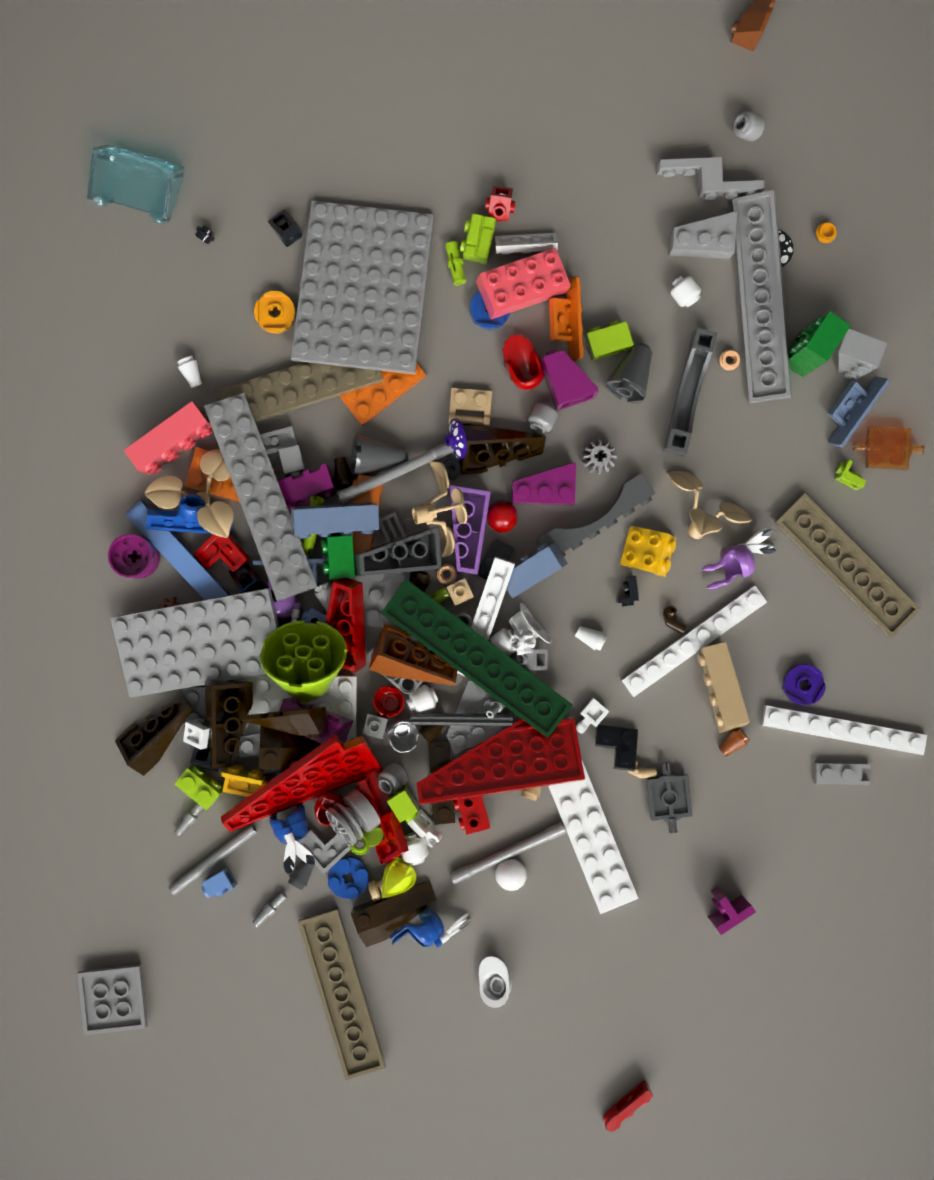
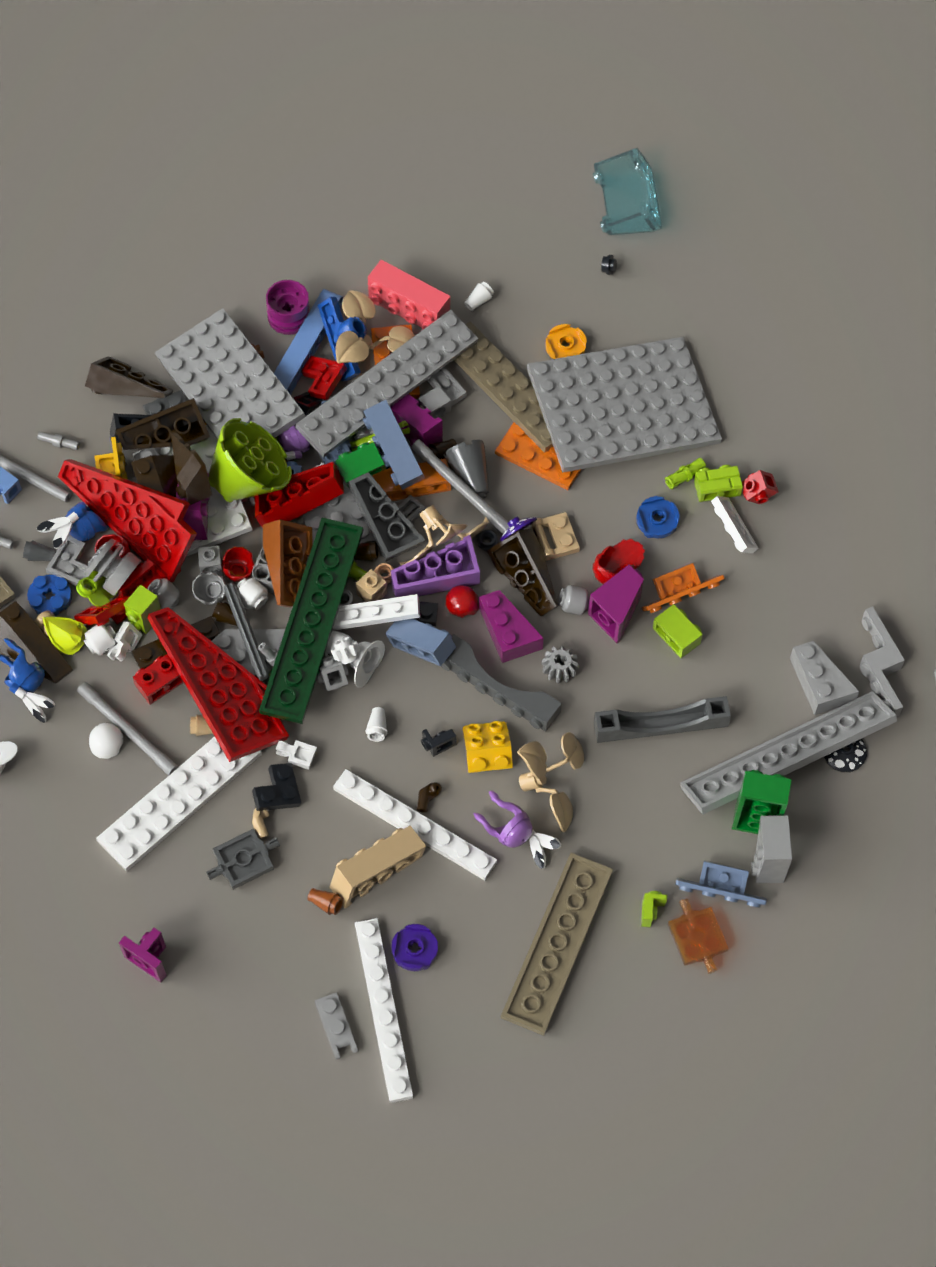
camera: 65 degrees right, 25 degrees down
(196, 733) = (142, 408): white bracket -> none
(199, 786) = (91, 435): lime brick -> none
(285, 228) = (646, 326): black slope -> none
(523, 283) = (693, 532): coral brick -> none
(631, 375) = (654, 660): dark grey cone -> none
(685, 291) = (759, 681): white head -> none
(733, 355) = (716, 744): light nougat plate -> none
(826, 232) = (886, 792): light orange plate -> none

